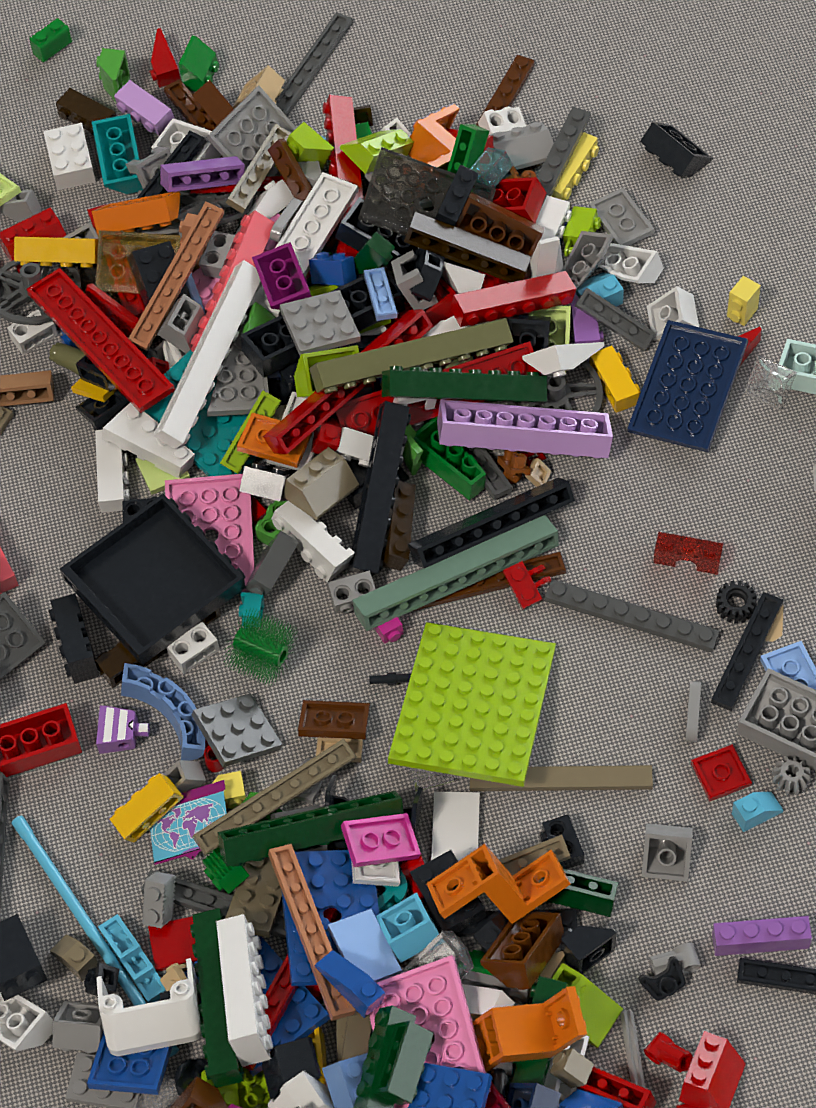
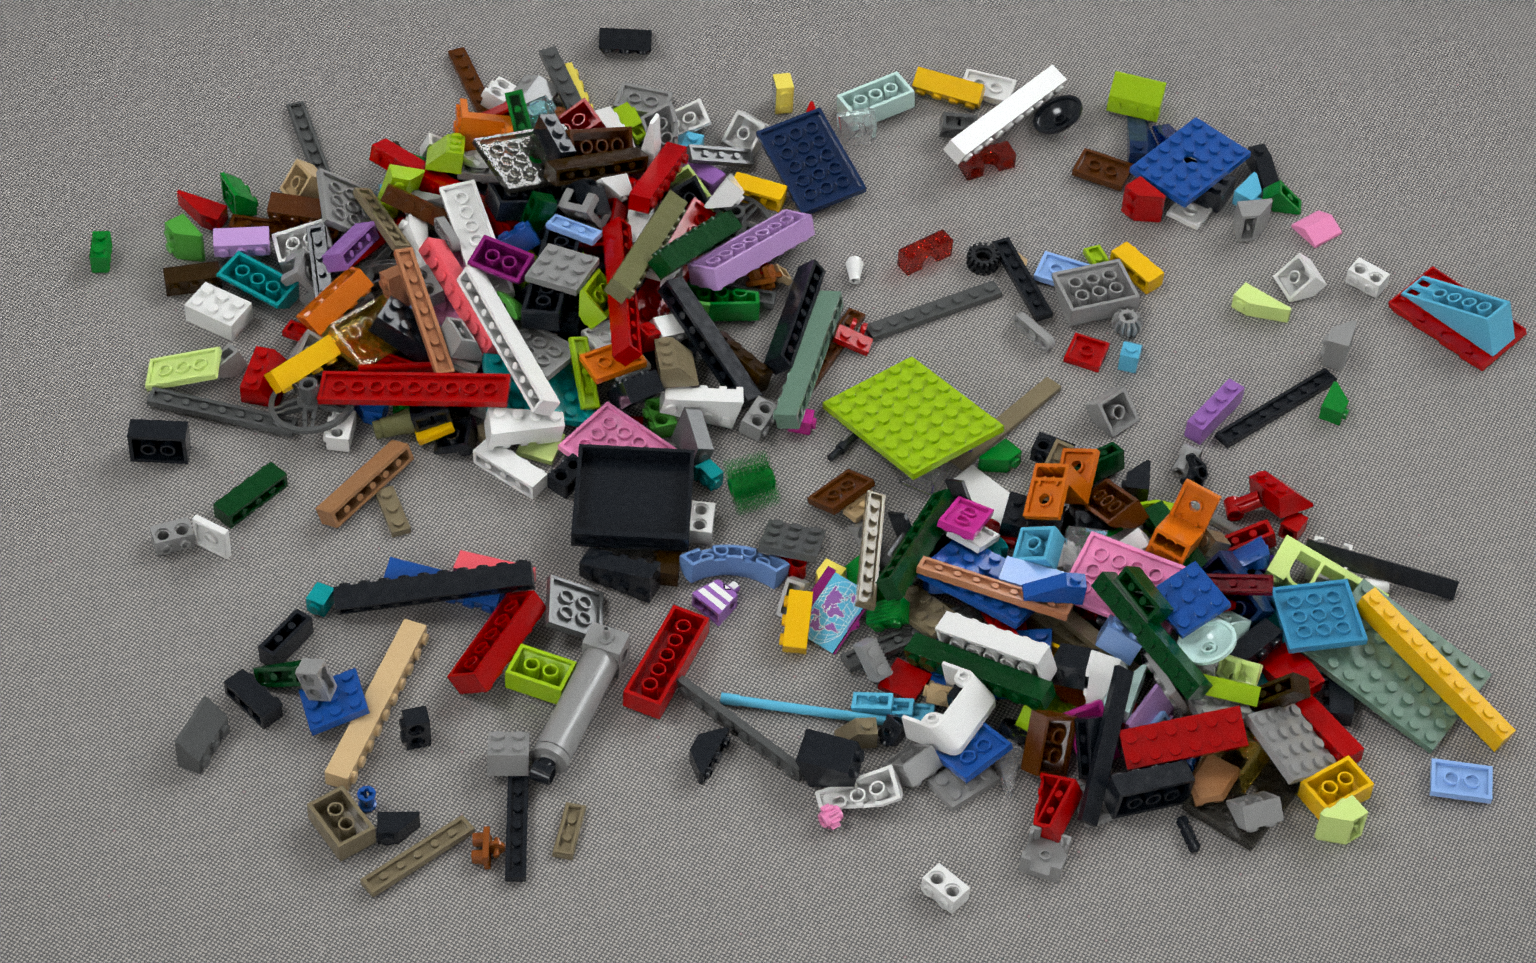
camera: 55 degrees left, 10 degrees down
(509, 808) = (1000, 458): none -> green slope
(609, 517) = (854, 268): none -> white cone

